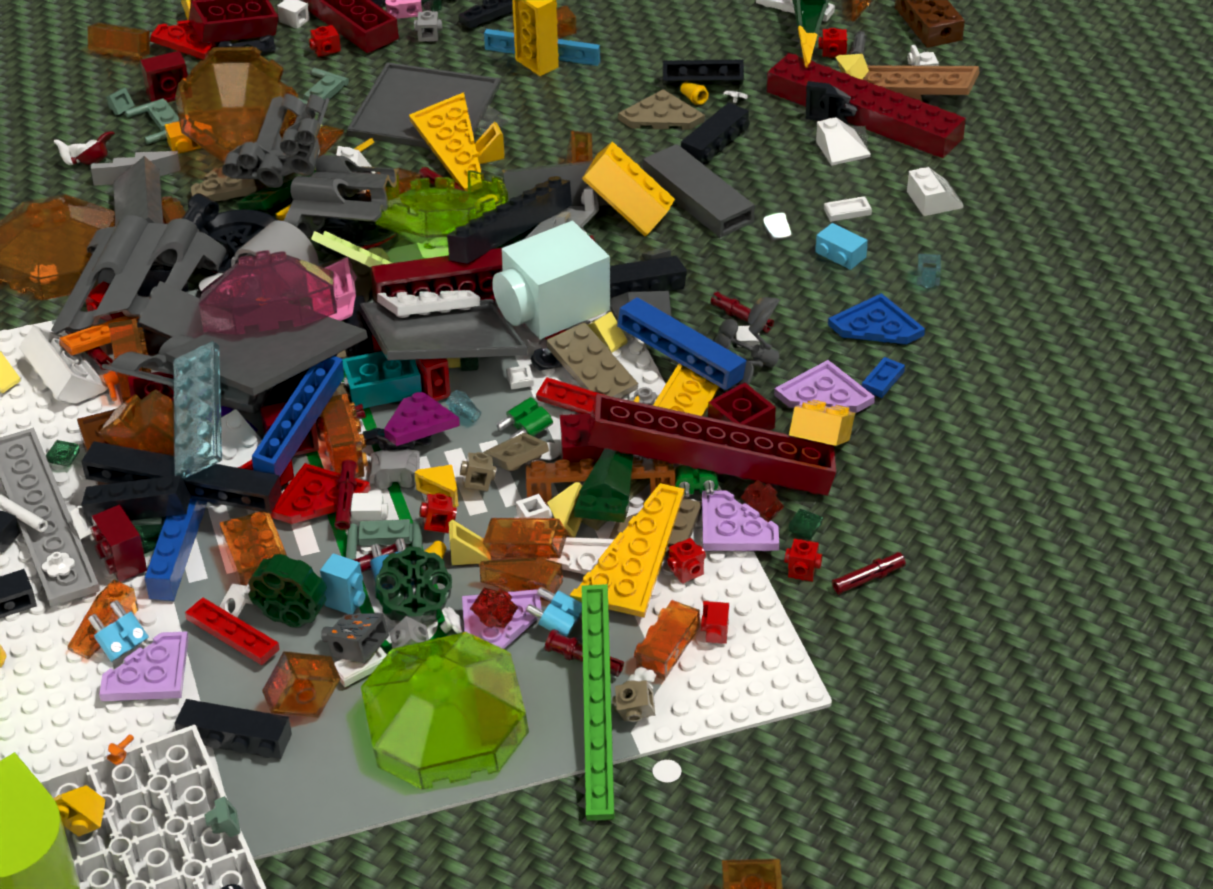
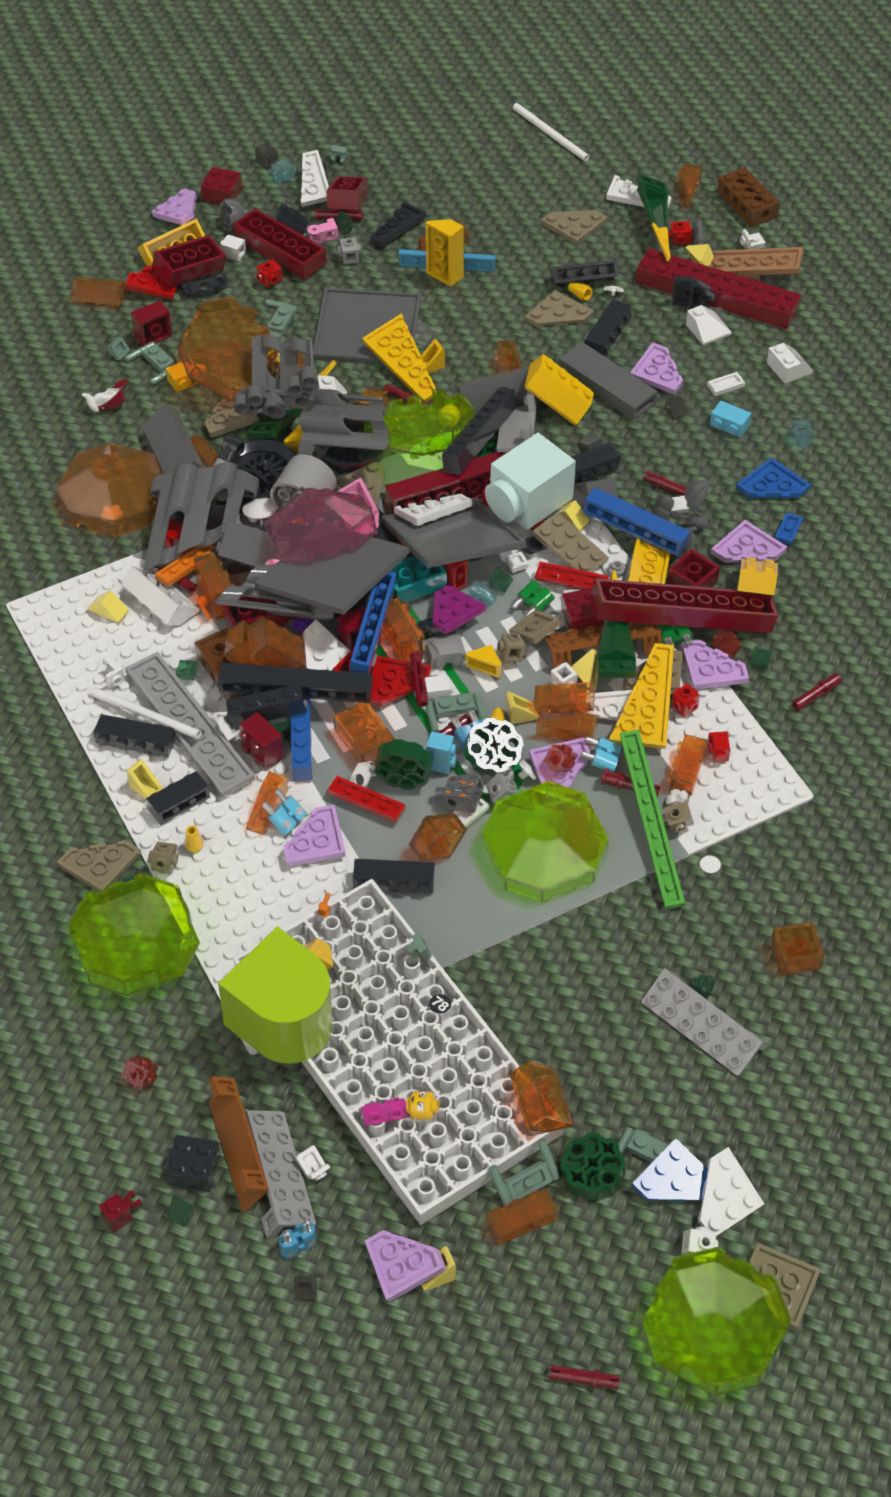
camera: 10 degrees left, 10 degrees up
(58, 564) = (219, 763): white plant -> none
(107, 173) = (146, 410): light grey slope -> none
(197, 410) = (299, 629): clear light blue plate -> none
(348, 249) = (364, 473): yellowish green plate -> none
(437, 512) = (491, 685): red brick -> none
(491, 394) = (500, 580): none -> clear green slope
(709, 26) = (574, 224): none -> dark tan plate
(765, 184) = (658, 369): none -> lavender plate
(803, 559) = (768, 688): red brick -> none

